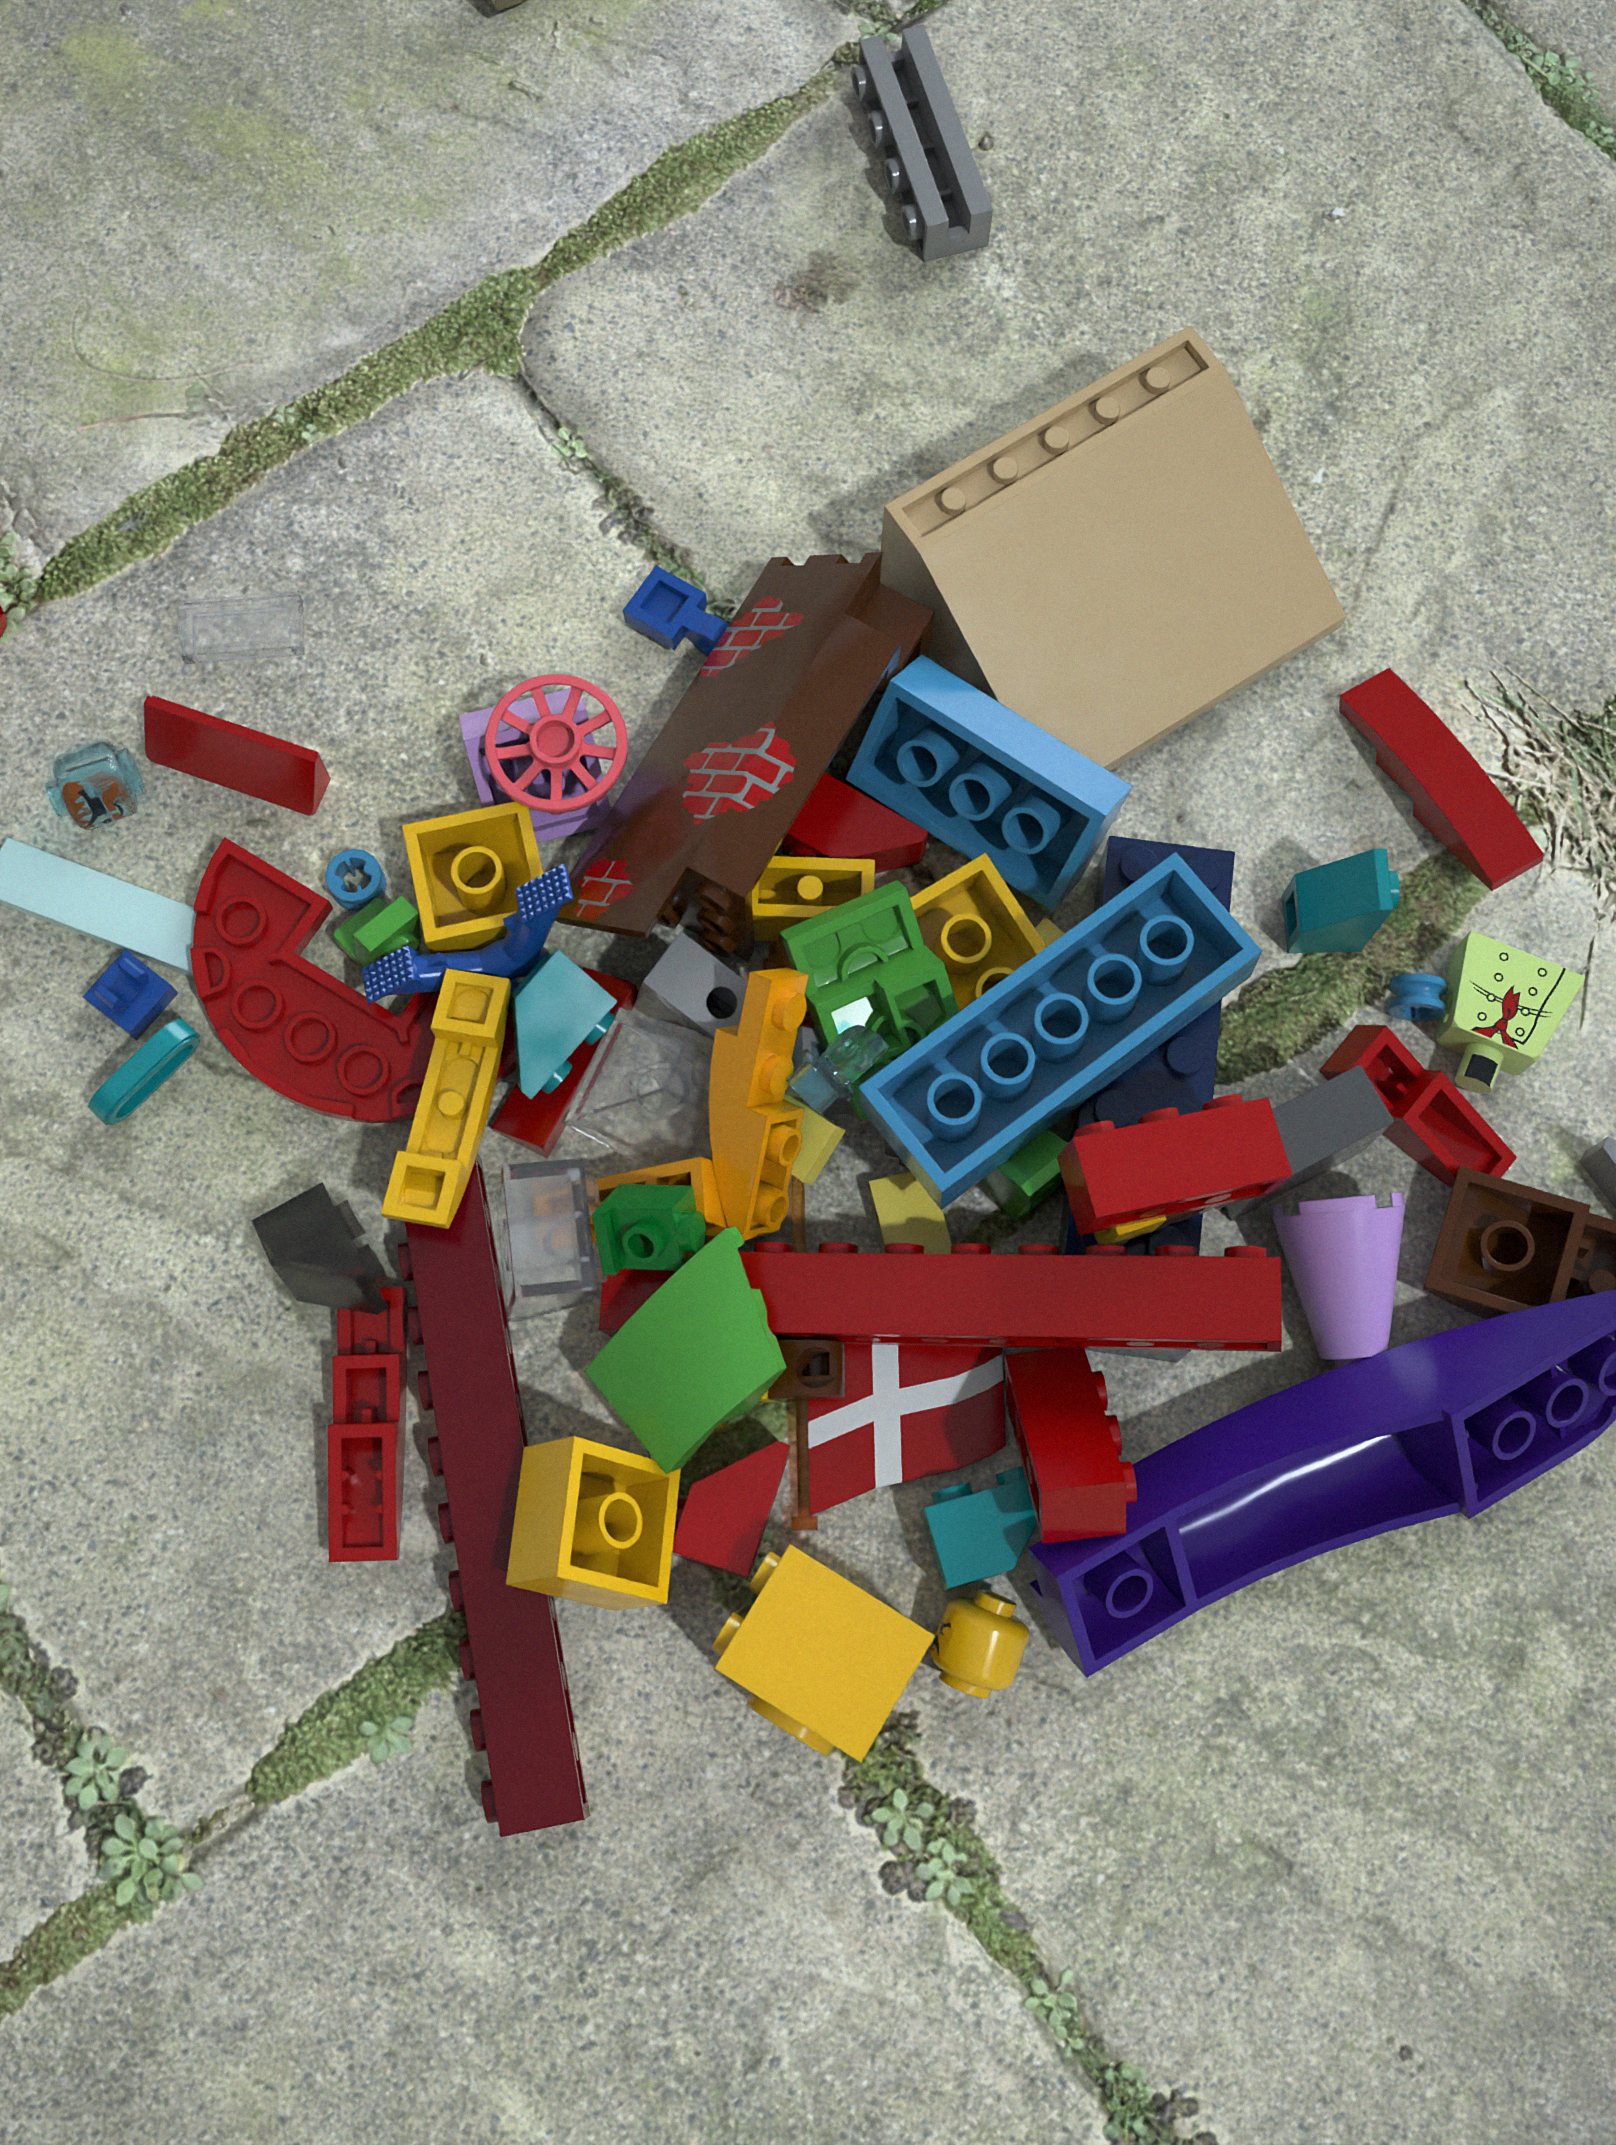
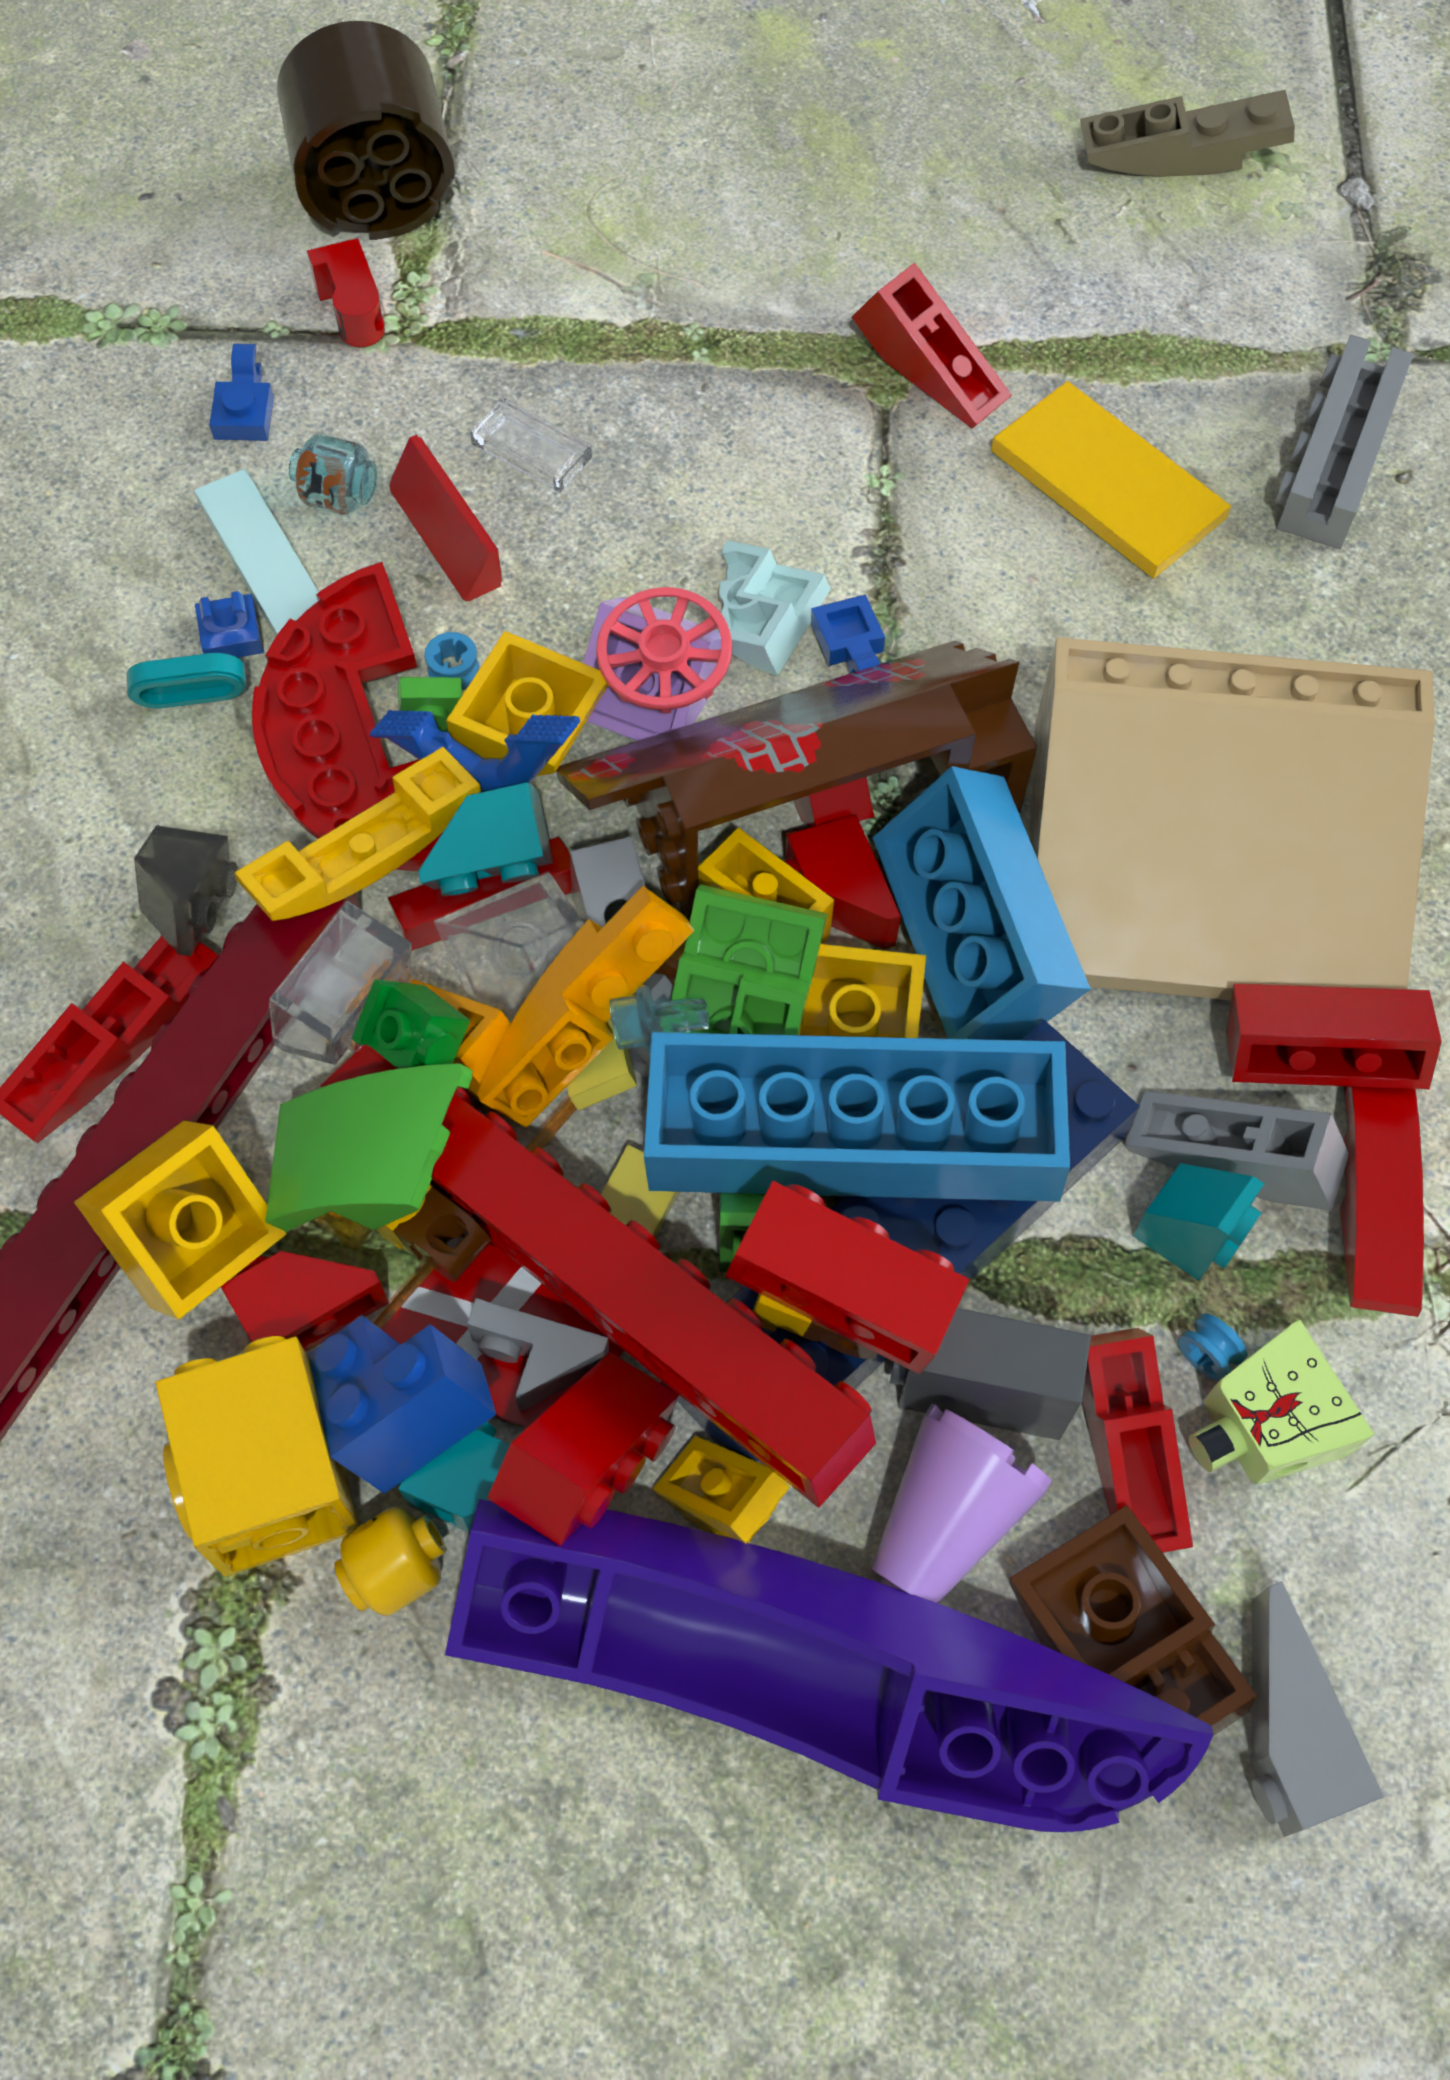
camera: 40 degrees right, 10 degrees down
(513, 290) = (930, 347): none -> red slope
(575, 630) = (766, 605): none -> light aqua slope
(758, 310) = (1110, 479): none -> yellow tile
(892, 1536) = (395, 1403): none -> blue brick
(965, 1391) = (555, 1351): none -> light grey slope
(1173, 1390) = (721, 1490): none -> yellow slope
(1317, 684) = (1332, 1036): none -> red brick
(1318, 822) = (1285, 1148): none -> light grey slope

